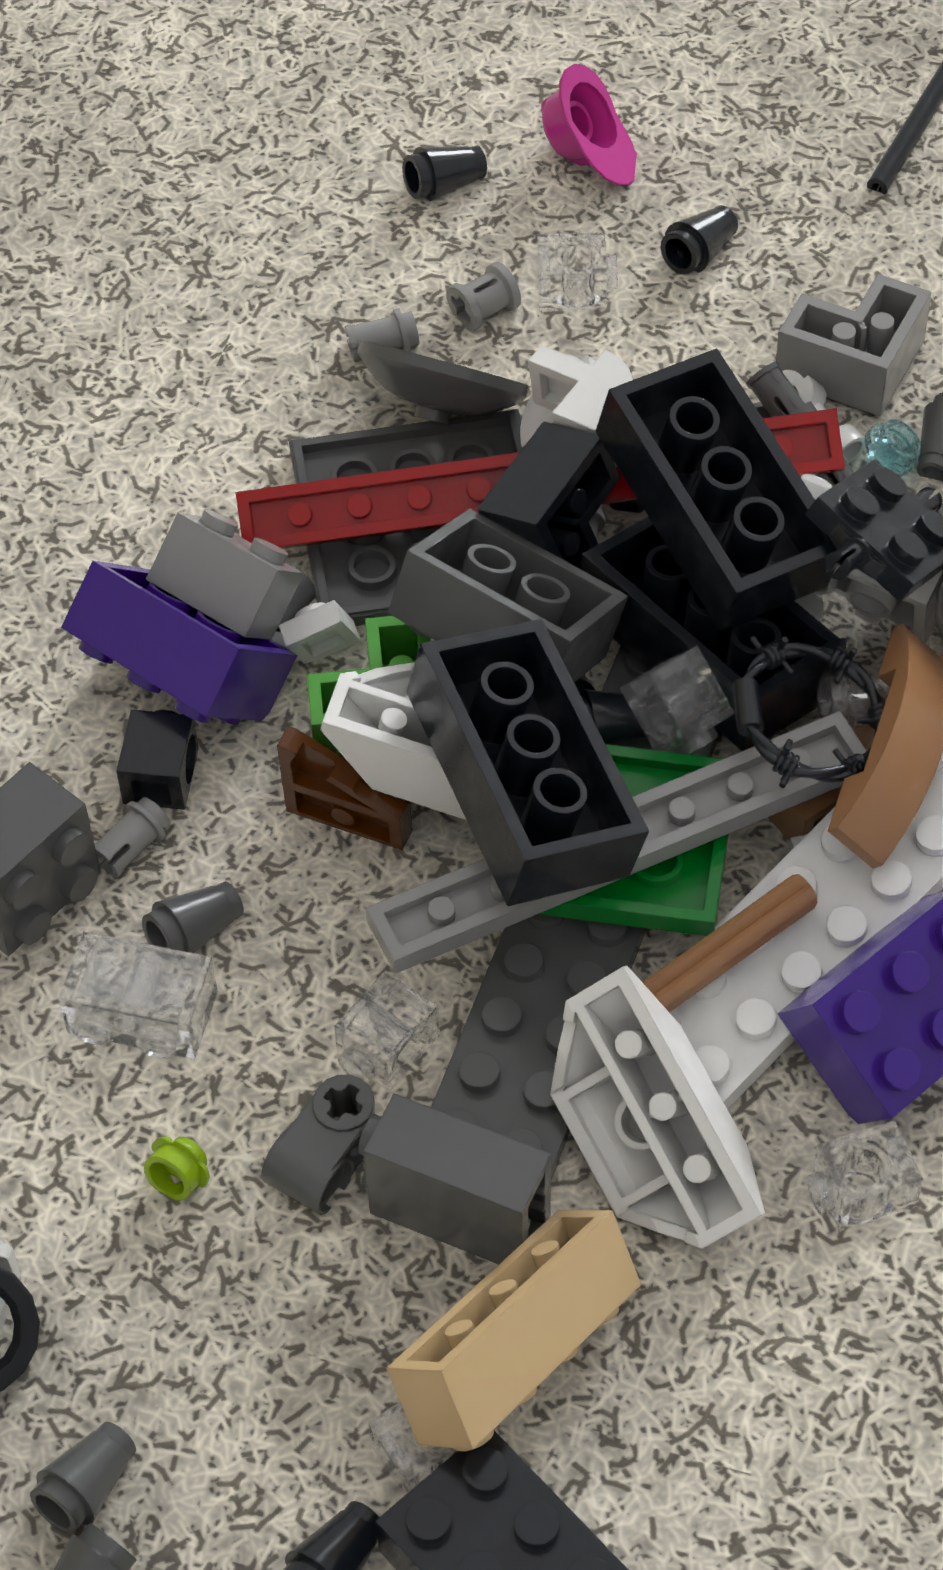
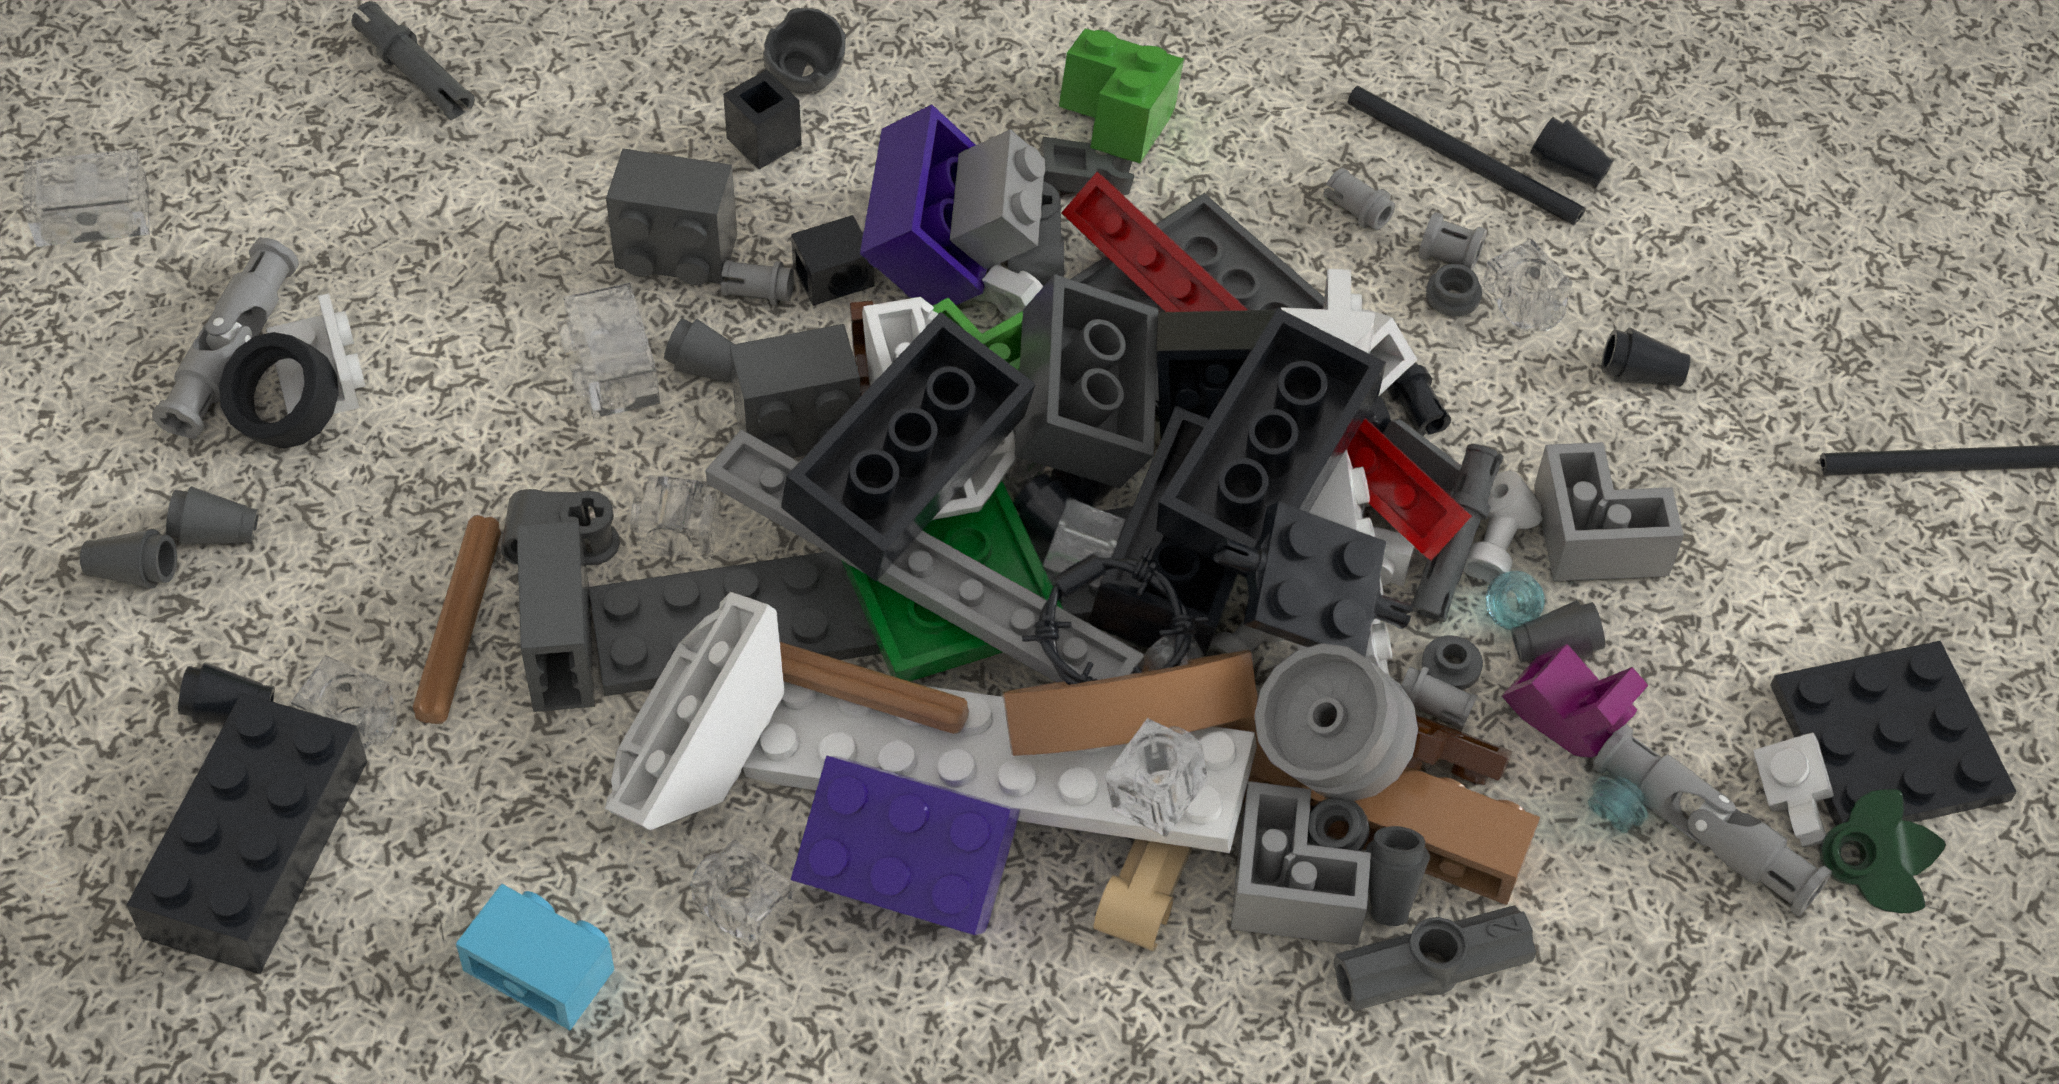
camera: 55 degrees right, 0 degrees up
(136, 429) = (1122, 87): none -> bright green brick
(158, 520) = (1074, 163): none -> dark grey plate
(178, 1158) = (491, 450): lime plate -> none
(326, 857) = (794, 386): none -> dark grey brick
(343, 1271) = (457, 620): none -> medium nougat axle
(382, 242) = (1466, 155): none -> black piece
(439, 386) = (1317, 237): dark grey dish -> none
(514, 1329) = (442, 703): tan brick -> none
(527, 312) = (1456, 278): none -> dark grey plate
(586, 127) = (1697, 224): dark pink piece -> none
(835, 1386) = (536, 955): none -> medium azure brick

